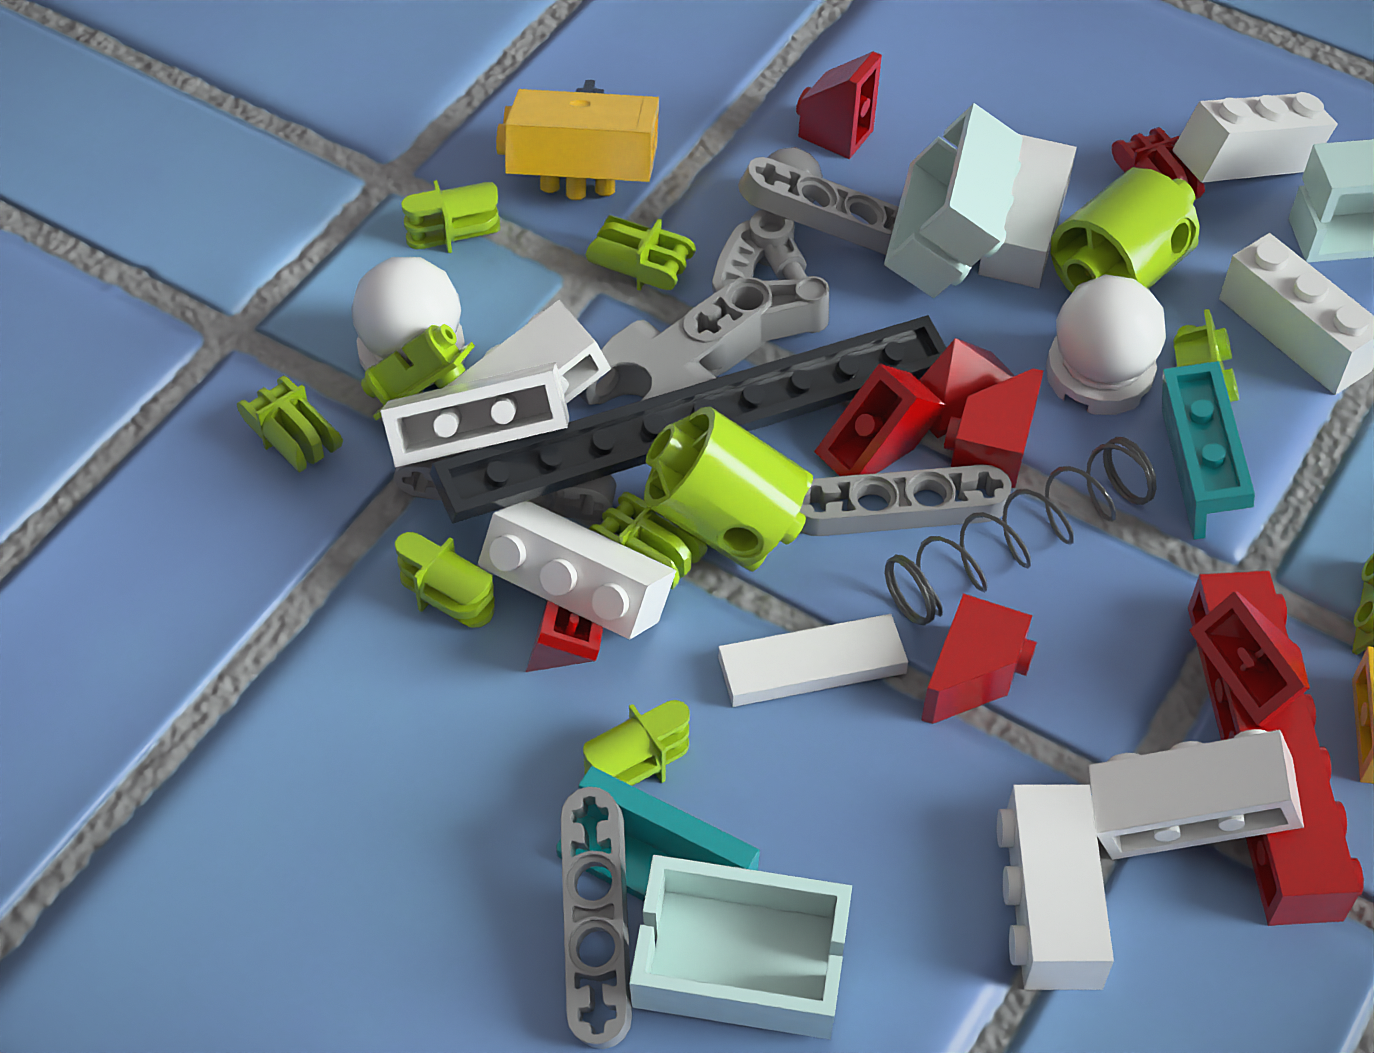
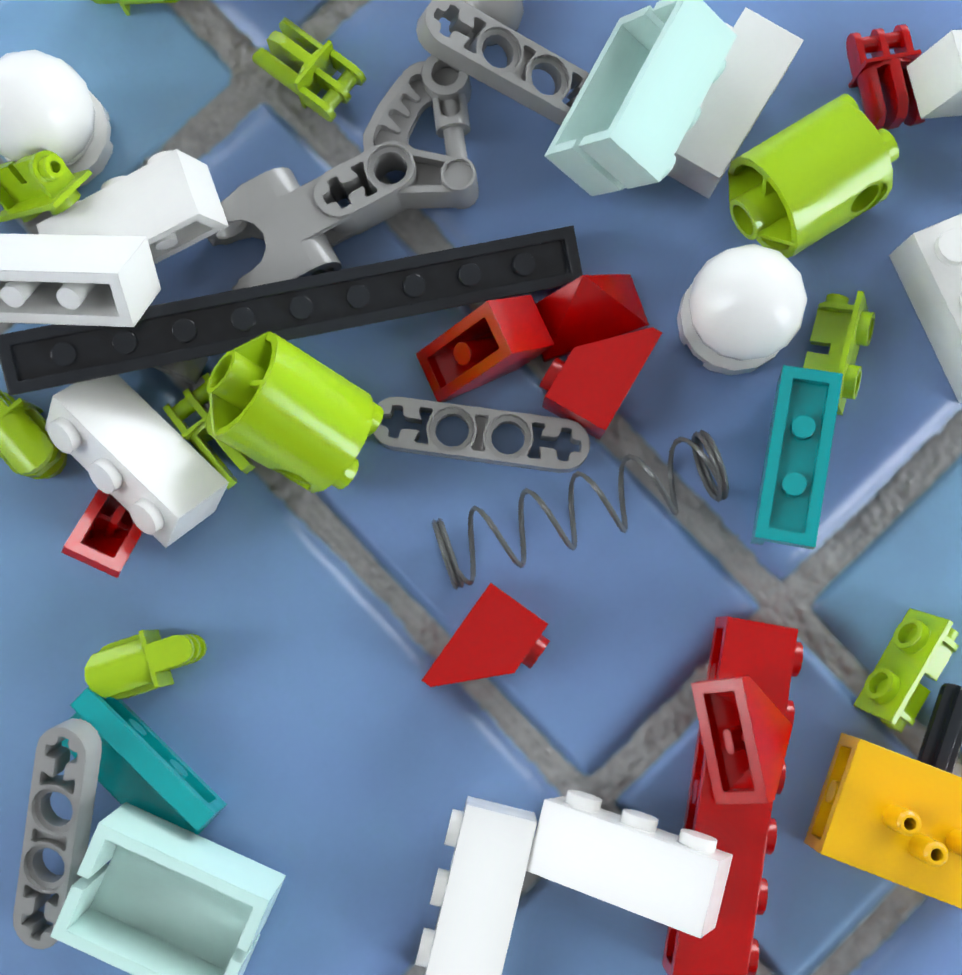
camera: 15 degrees right, 30 degrees up
(812, 660) = (339, 595): white tile -> none

